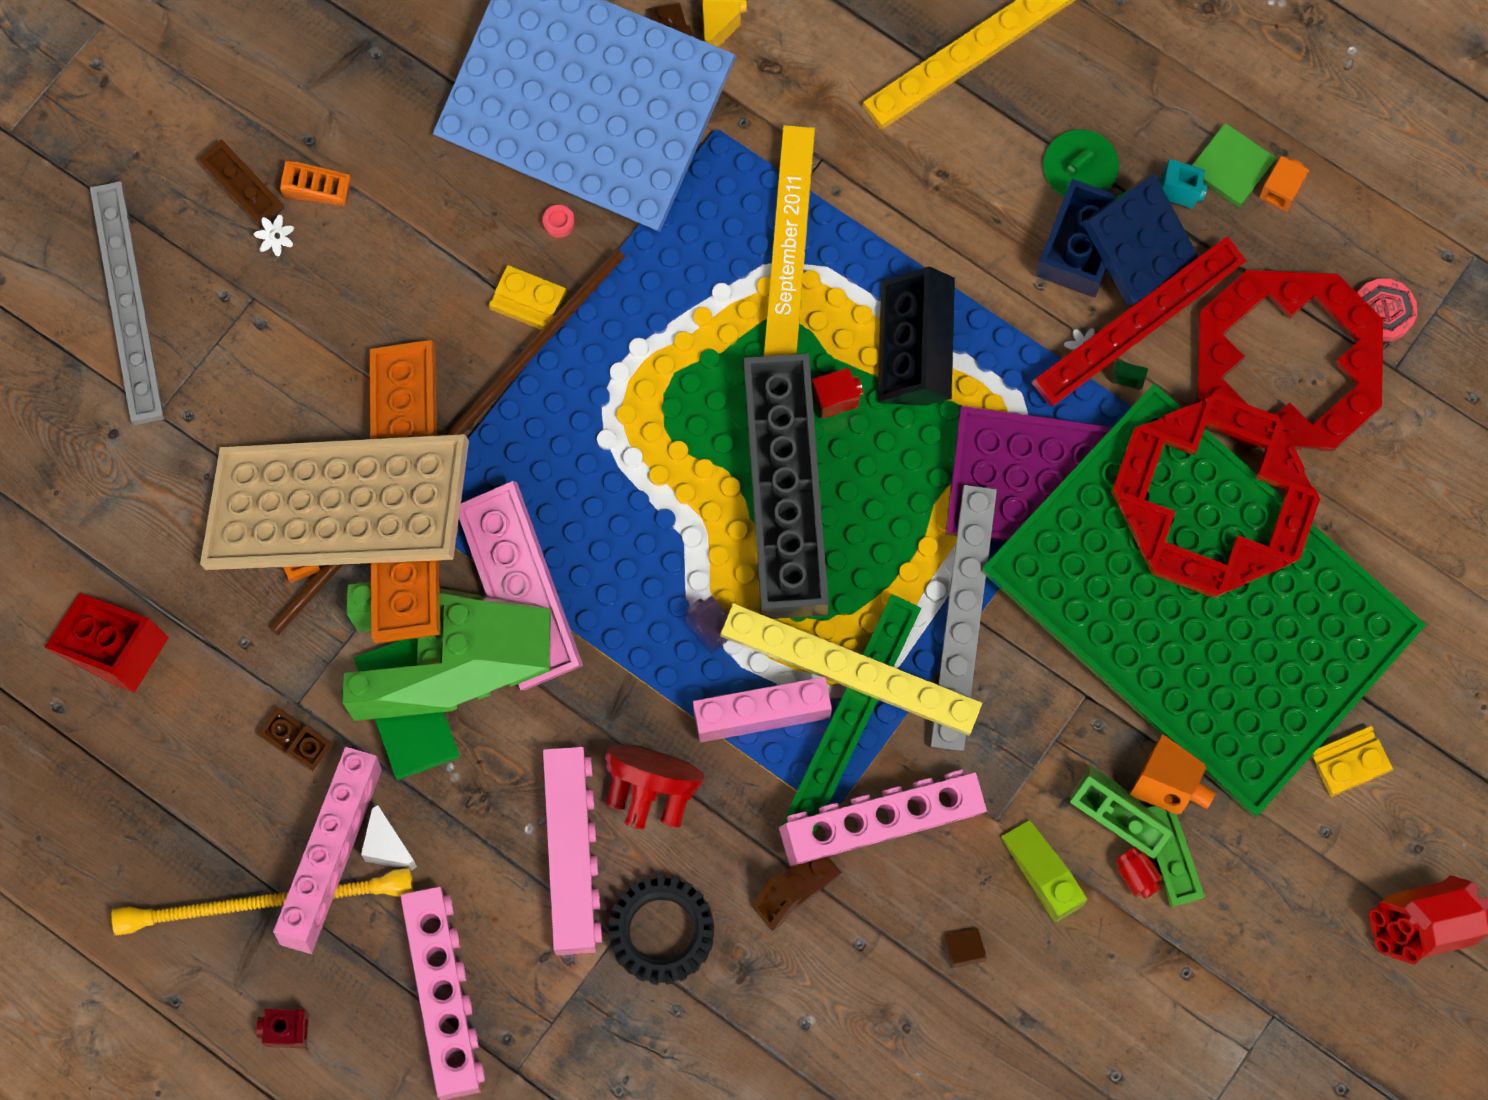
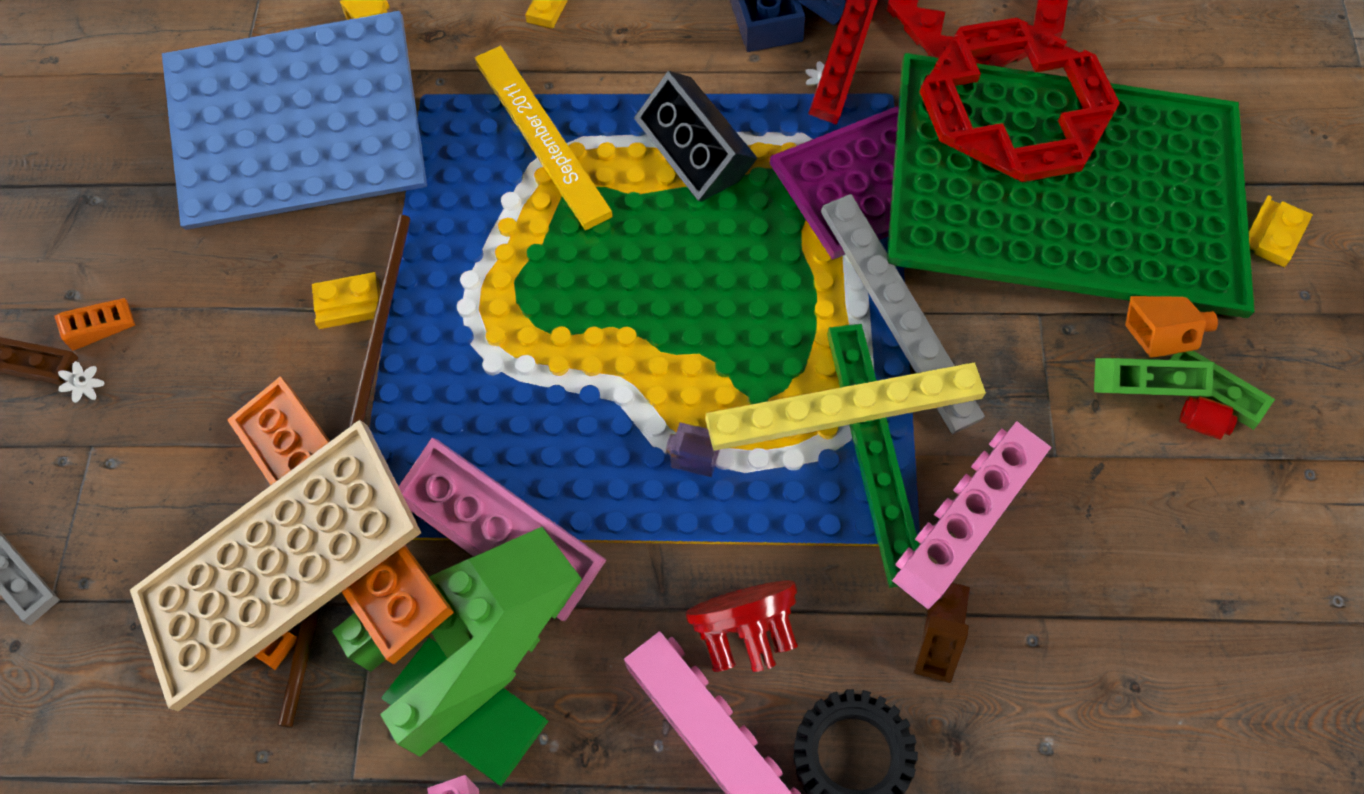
camera: 30 degrees left, 10 degrees down
(558, 221) = (334, 229): coral tile -> none
(762, 709) = (794, 491): bright pink brick -> none
(785, 486) = (678, 301): dark grey brick -> none
(836, 392) = (661, 210): red brick -> none
(965, 948) = (1125, 578): reddish brown slope -> none
(1044, 871) = (1137, 468): lime slope -> none
(1129, 375) = (874, 71): dark green tile -> none

